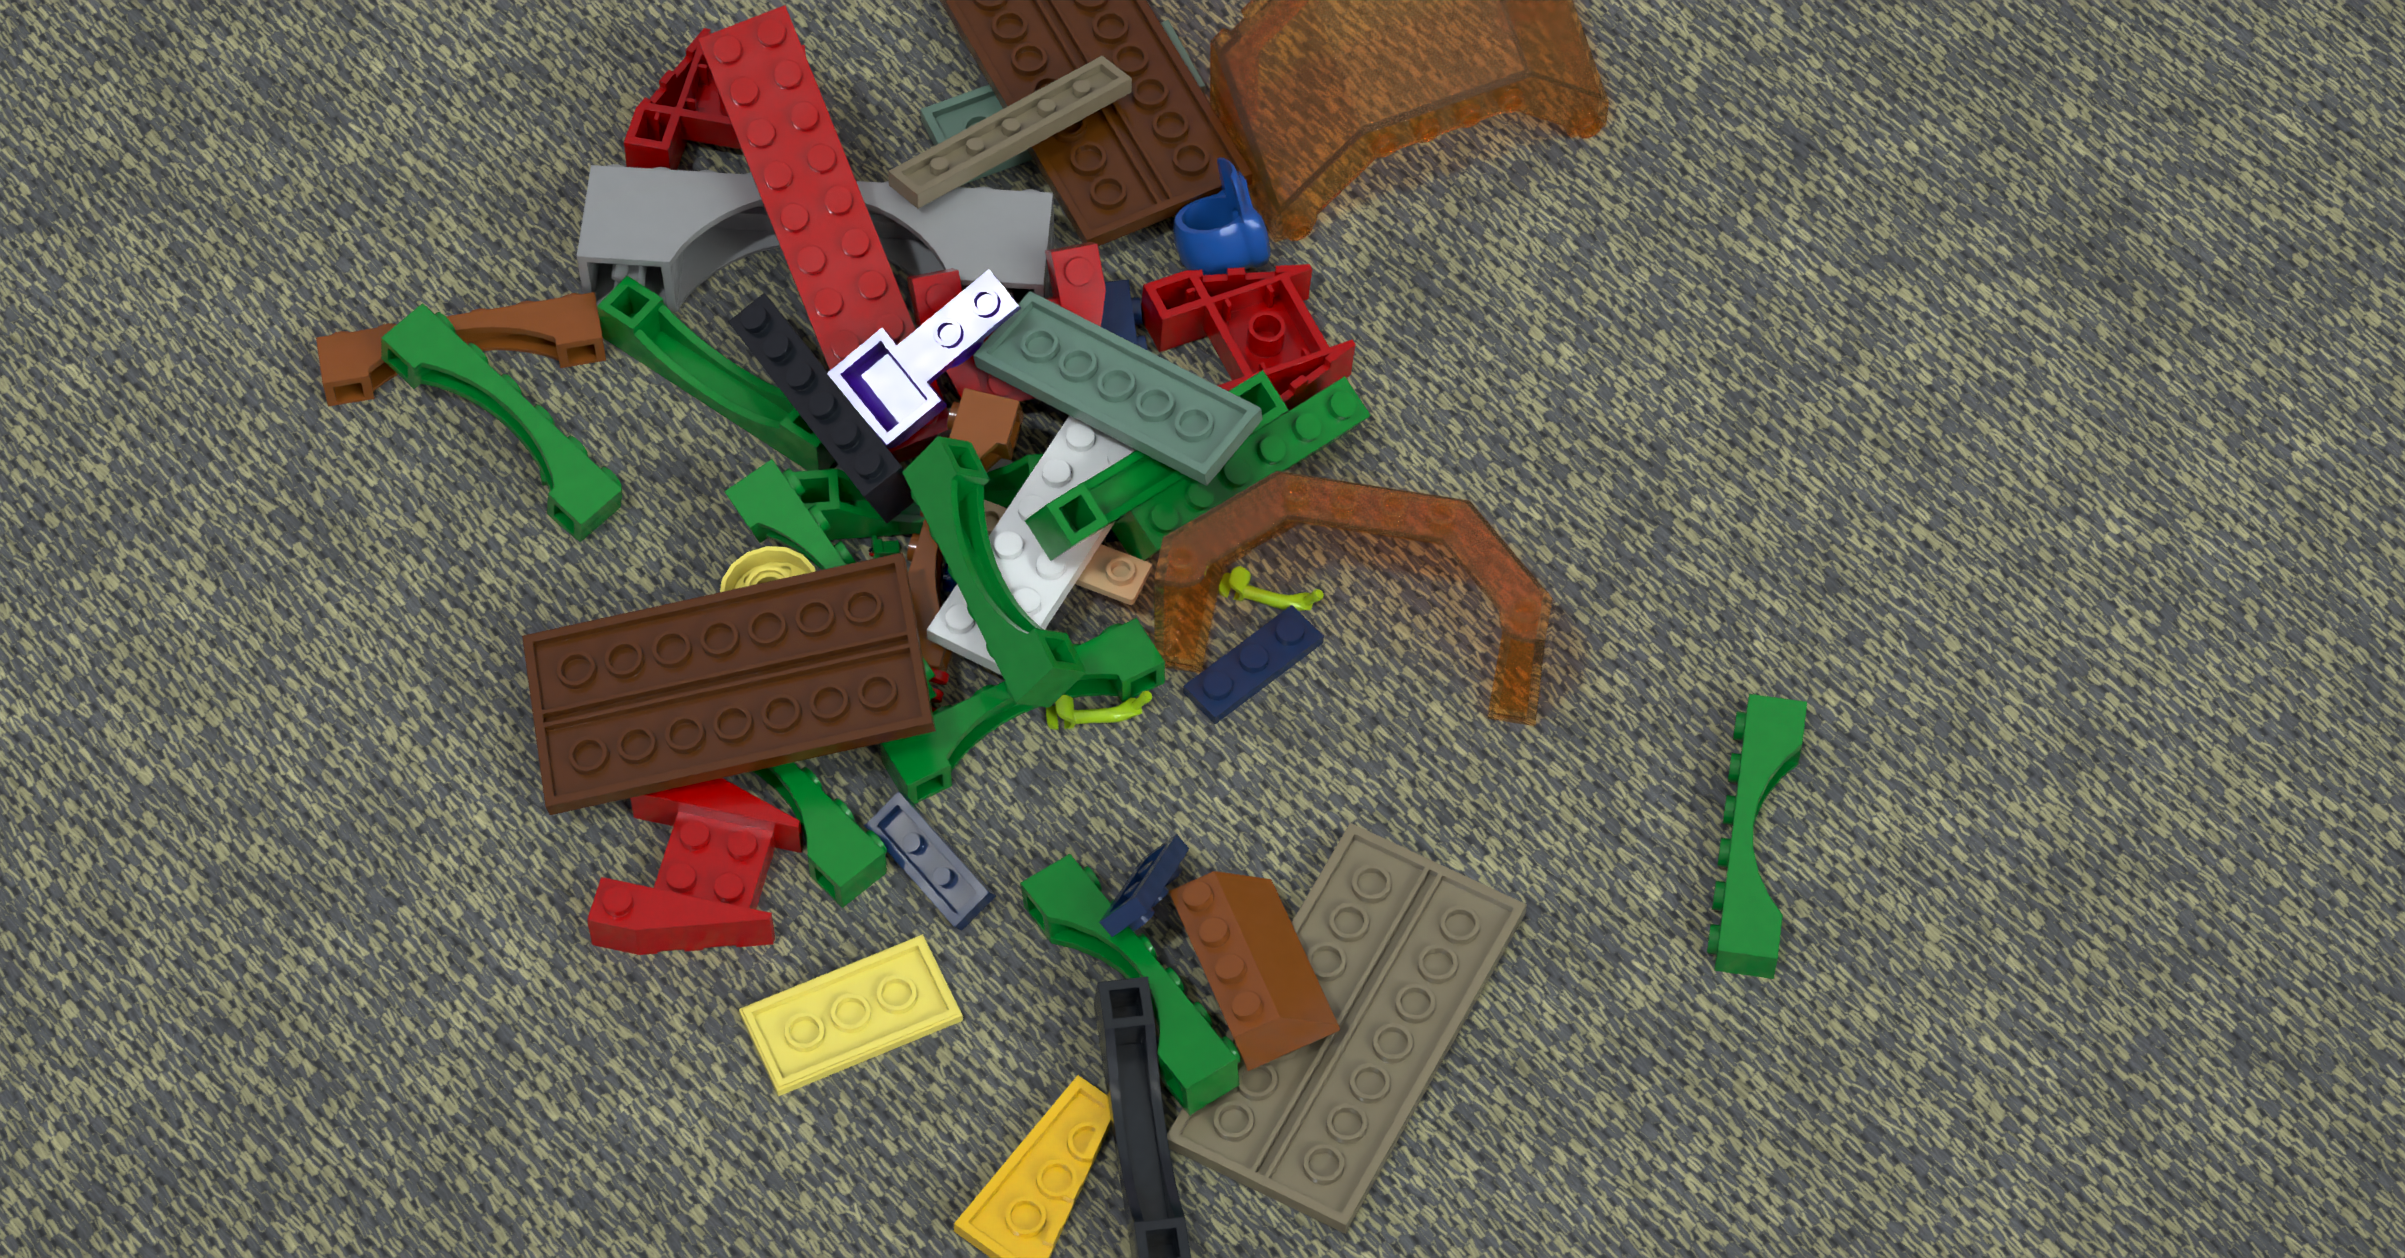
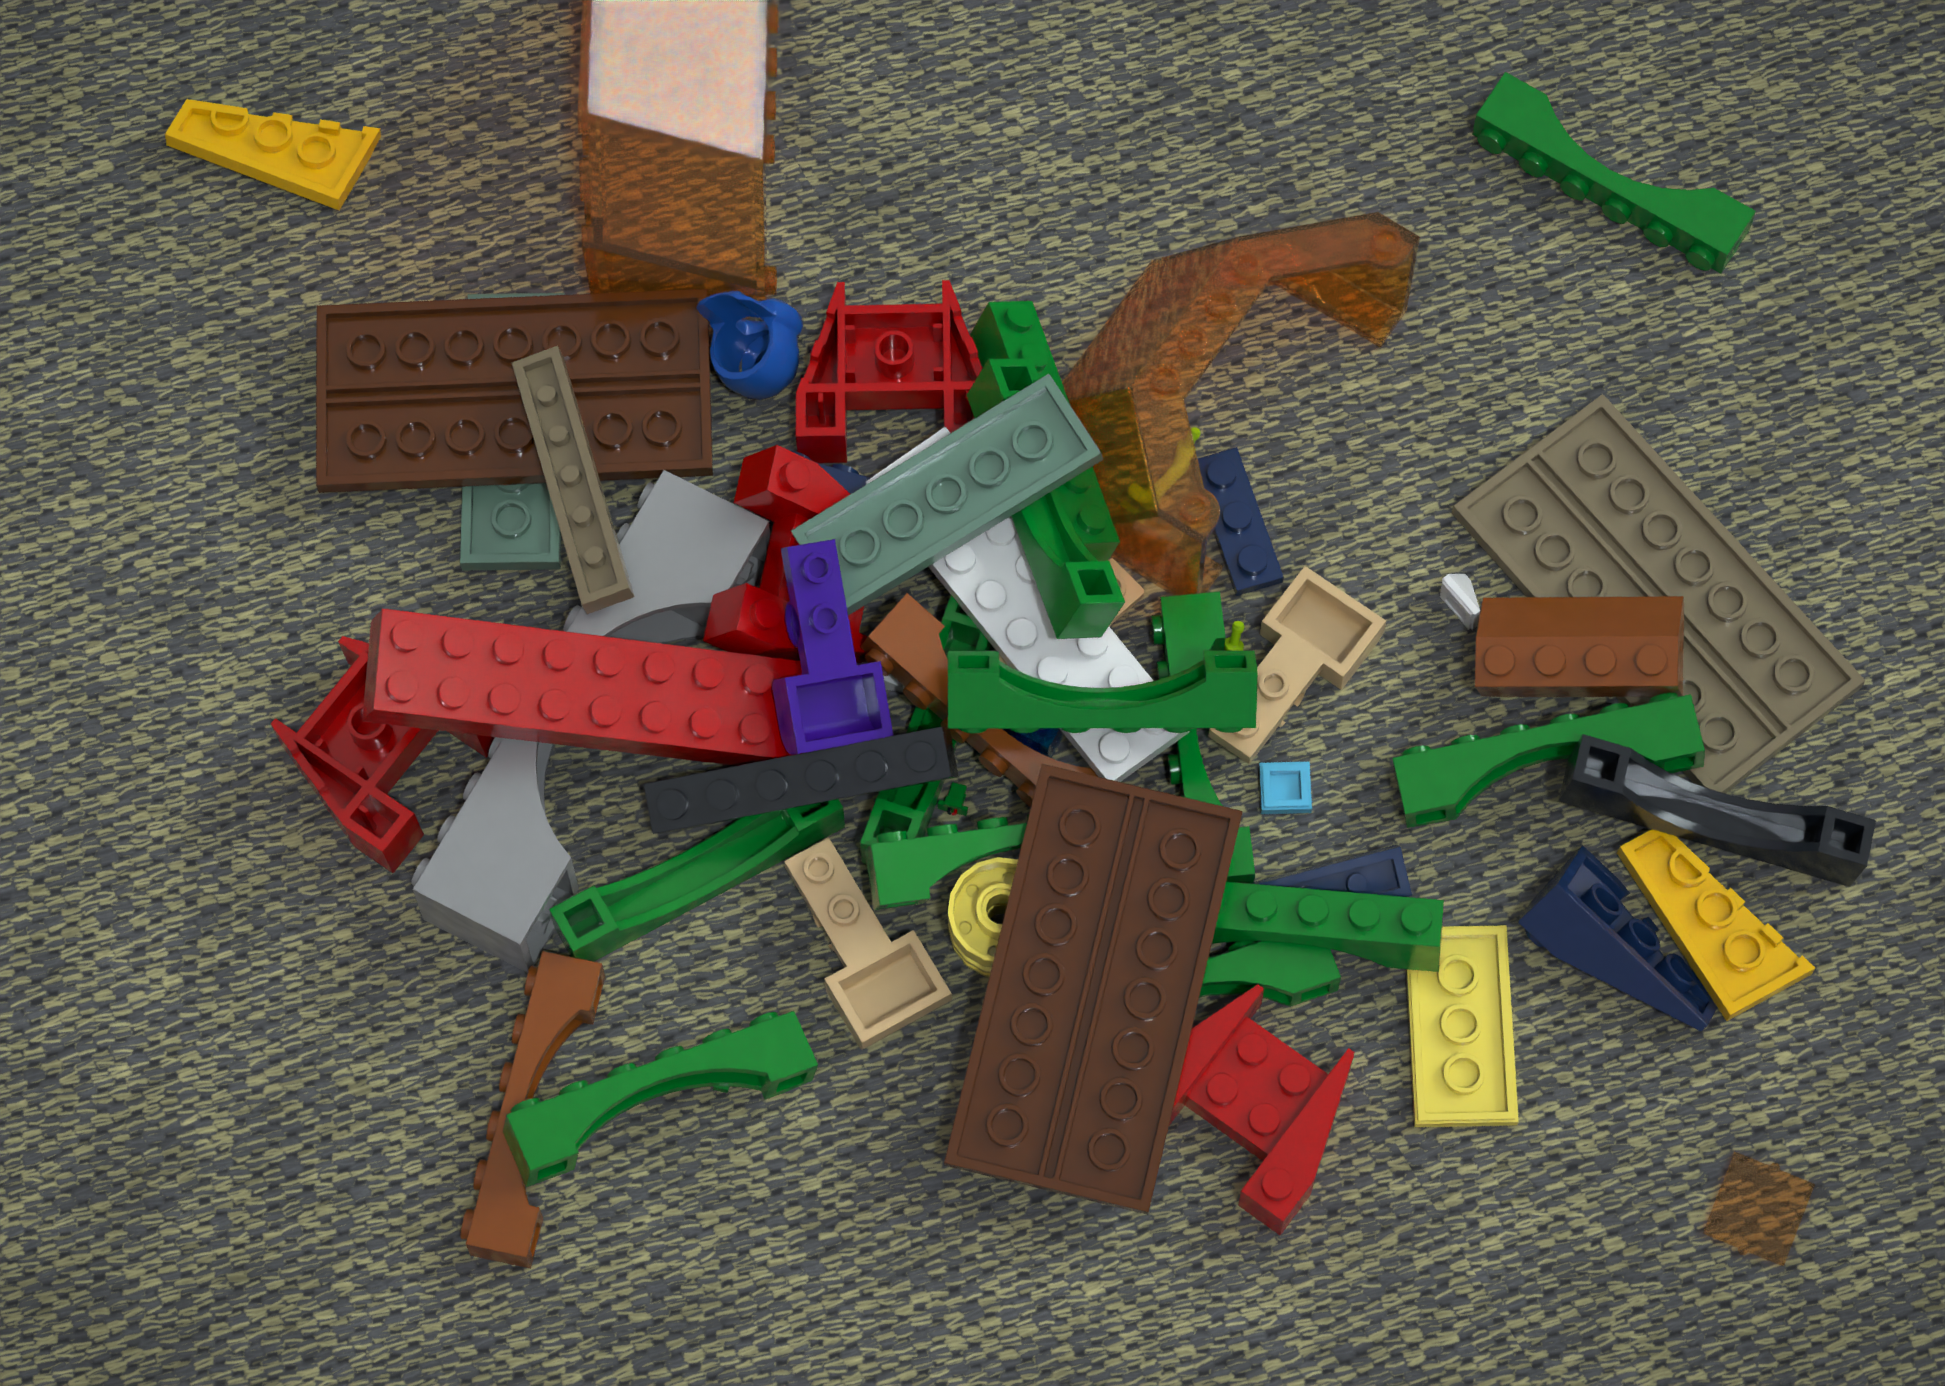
camera: 65 degrees left, 10 degrees up
(688, 549) = (881, 980): none -> tan plate
(890, 869) = (1371, 926): none -> green arch
(986, 1091) = (1589, 927): none -> dark blue wedge
(1014, 795) = (1285, 787): none -> medium azure tile
(1145, 887) = (1463, 704): dark blue plate -> none
(1168, 758) = (1313, 634): none -> tan plate
(1268, 859) = (1461, 598): none -> white slope

